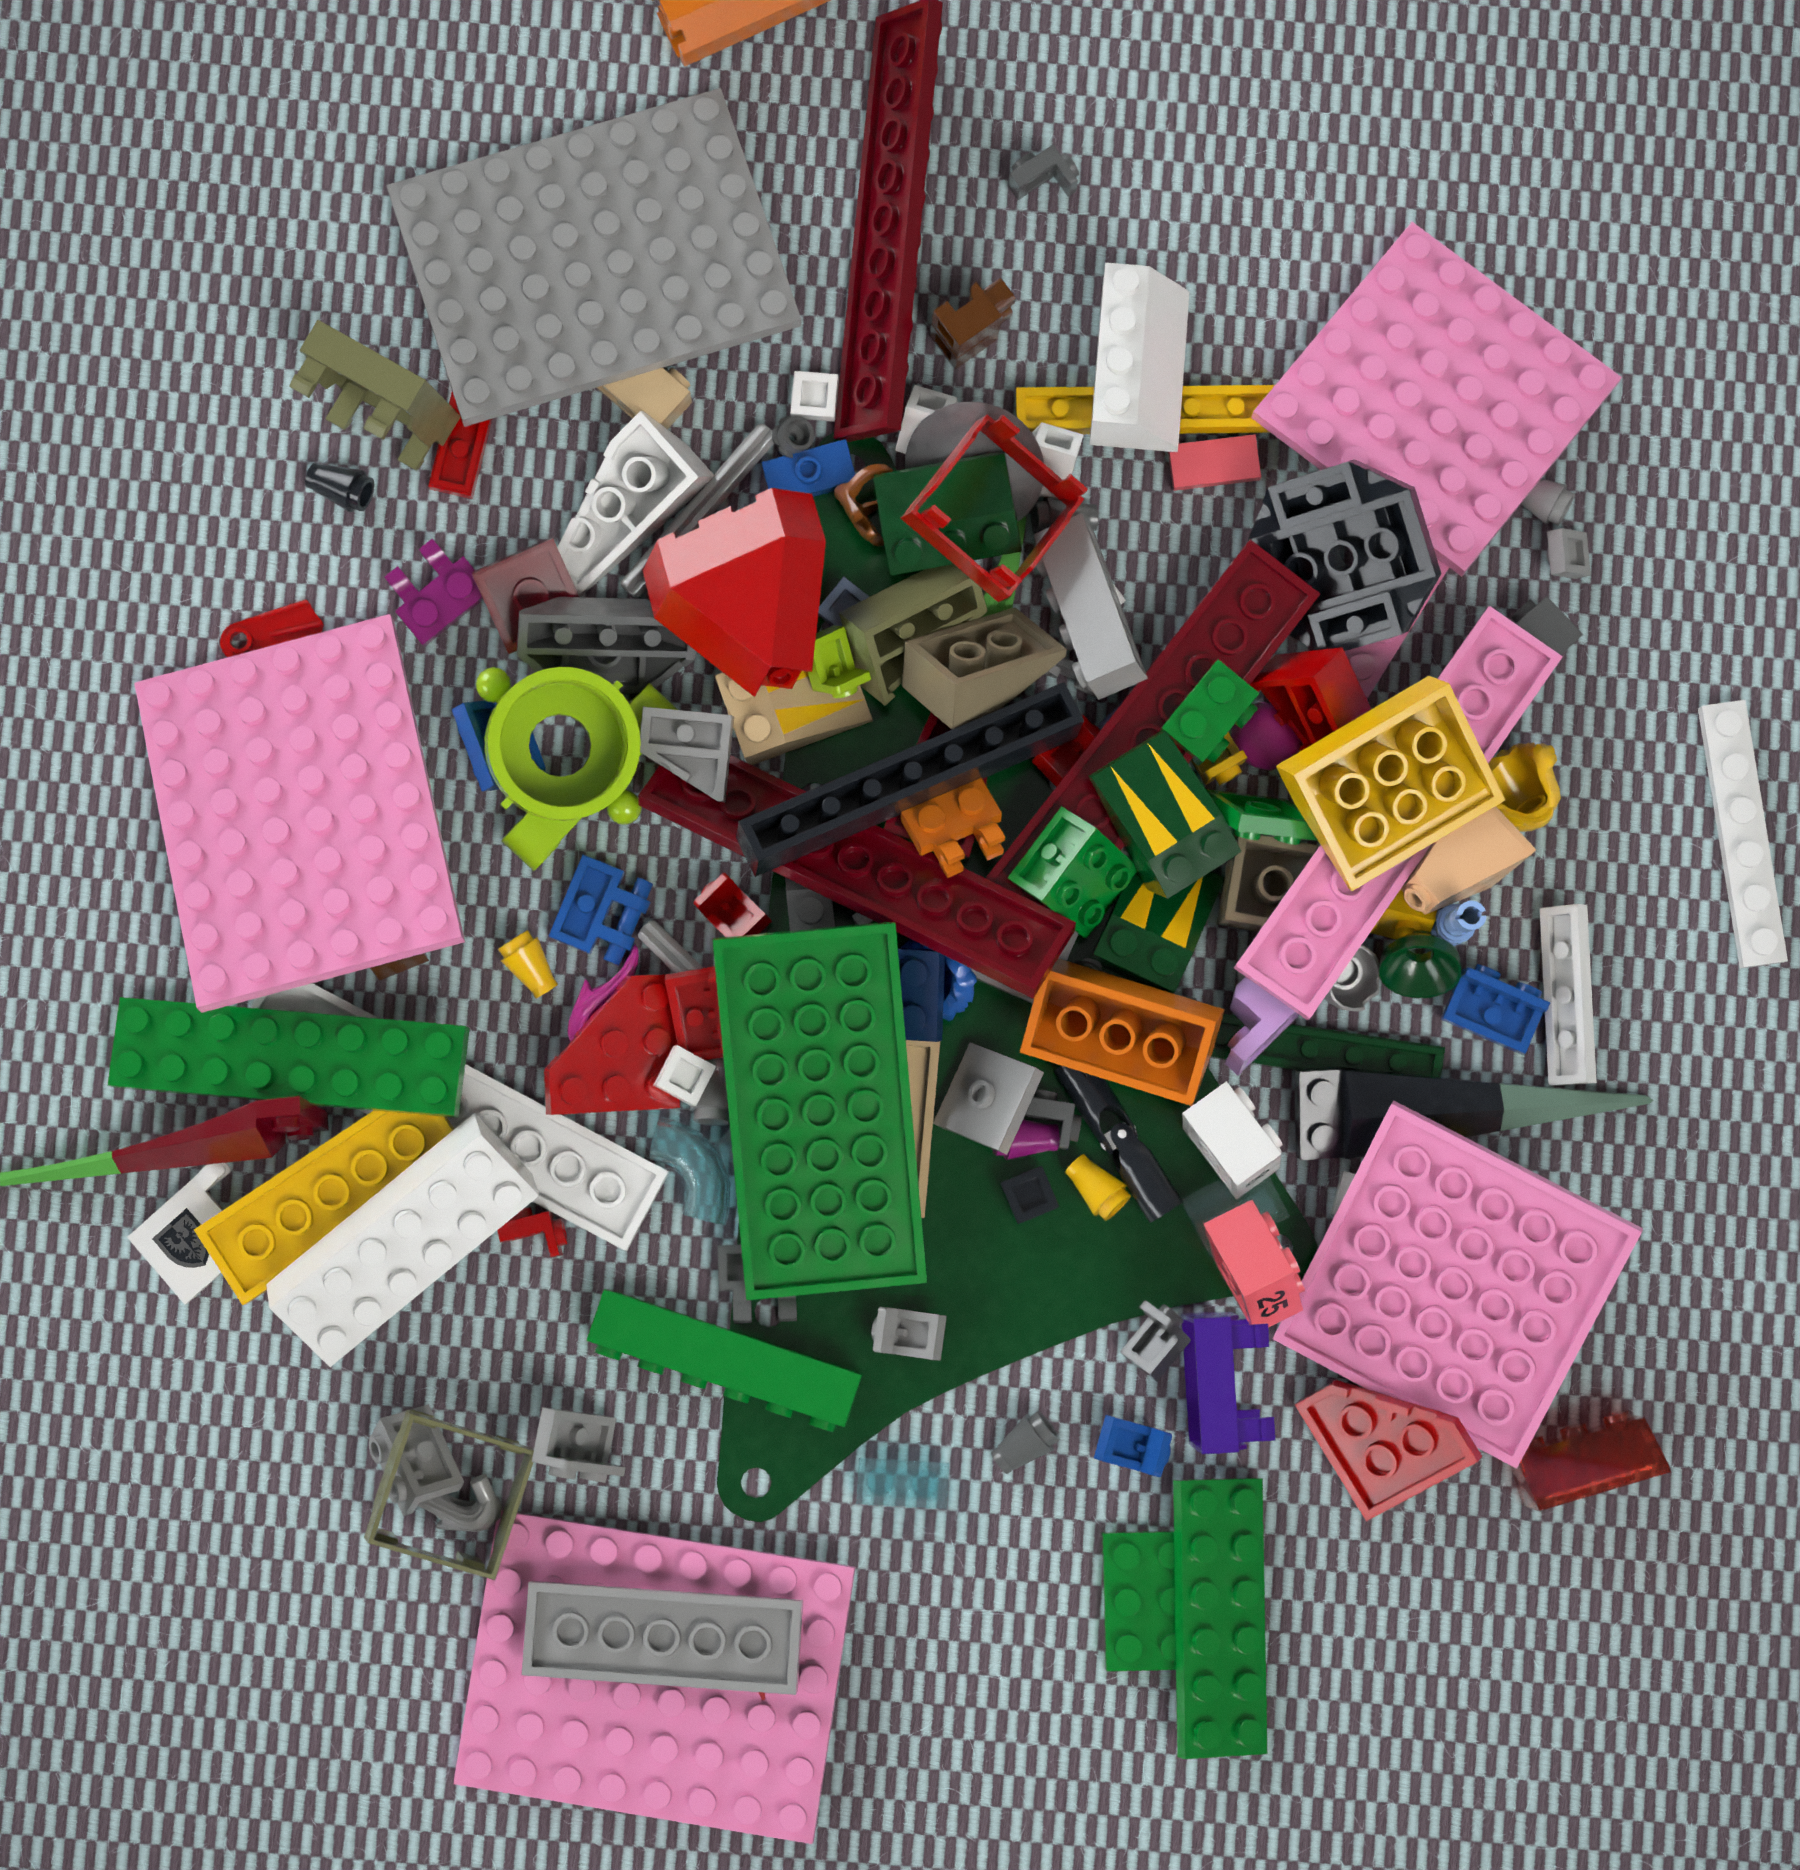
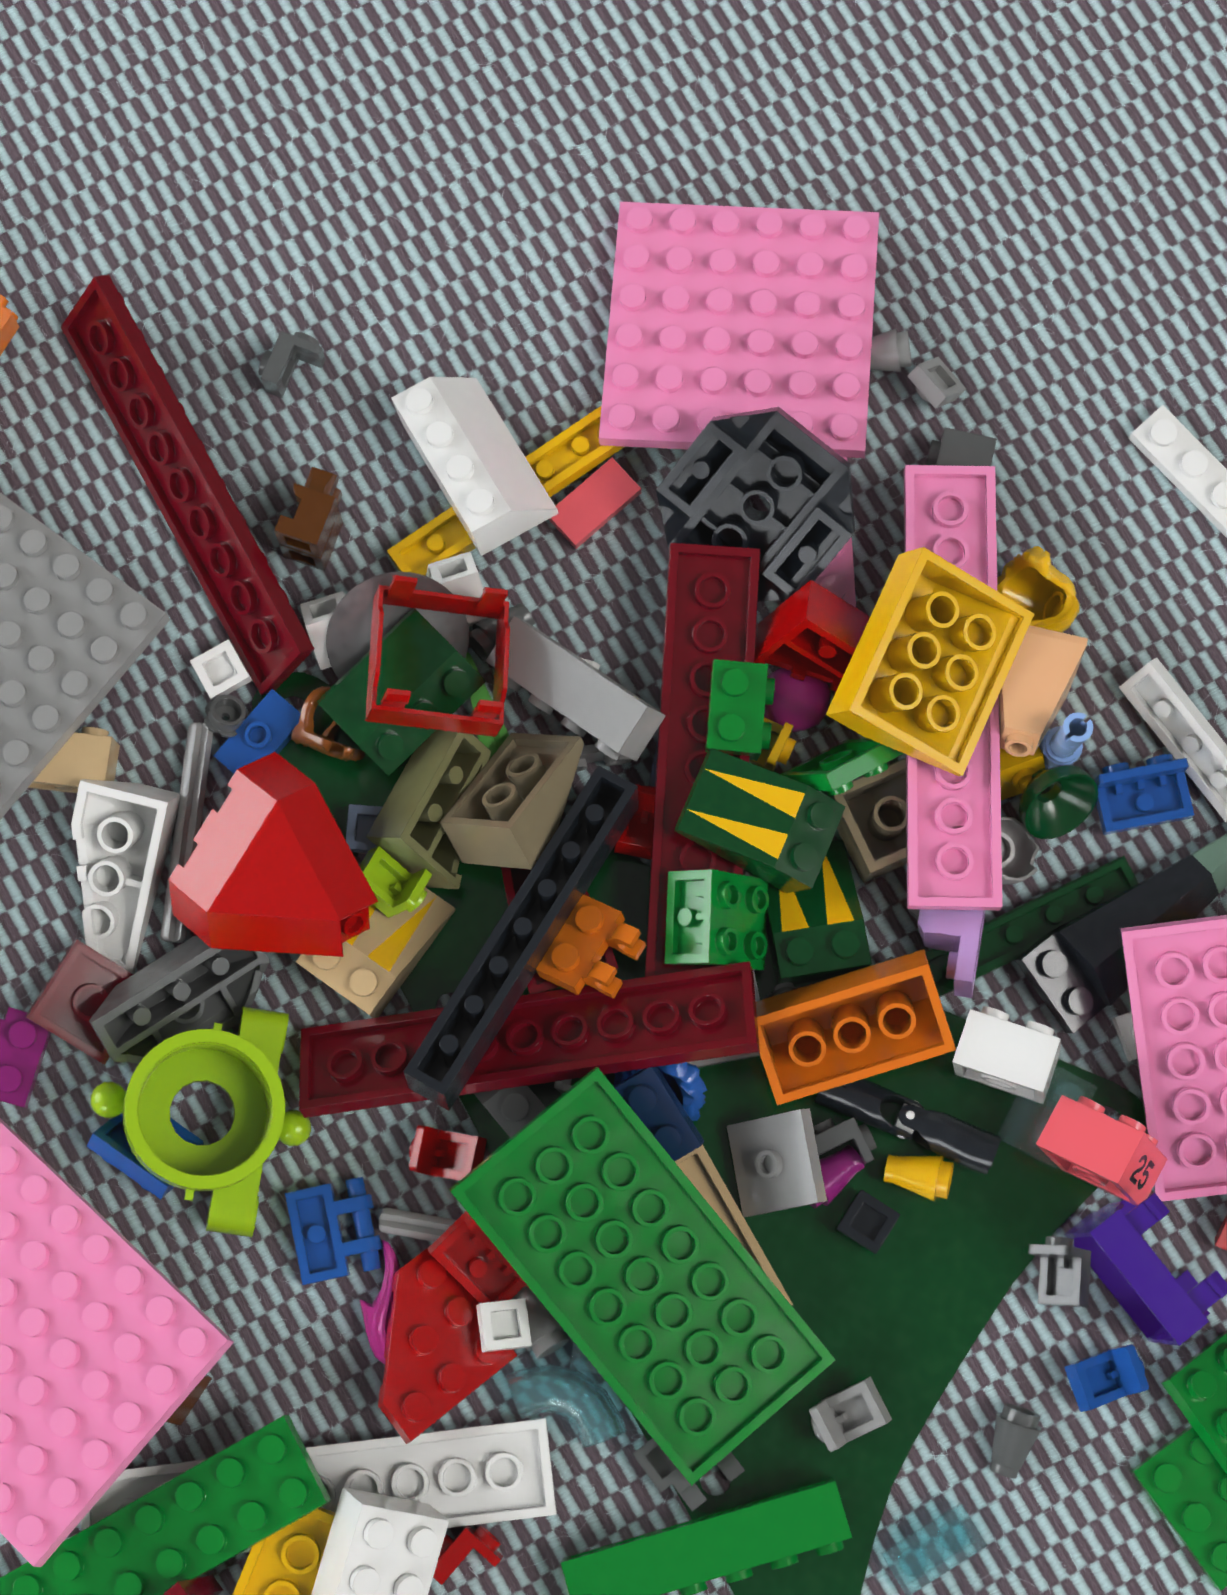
camera: 30 degrees left, 5 degrees down
(528, 963) = (300, 1320): yellow cone -> none
(690, 746) = (316, 1036): light grey wing -> none

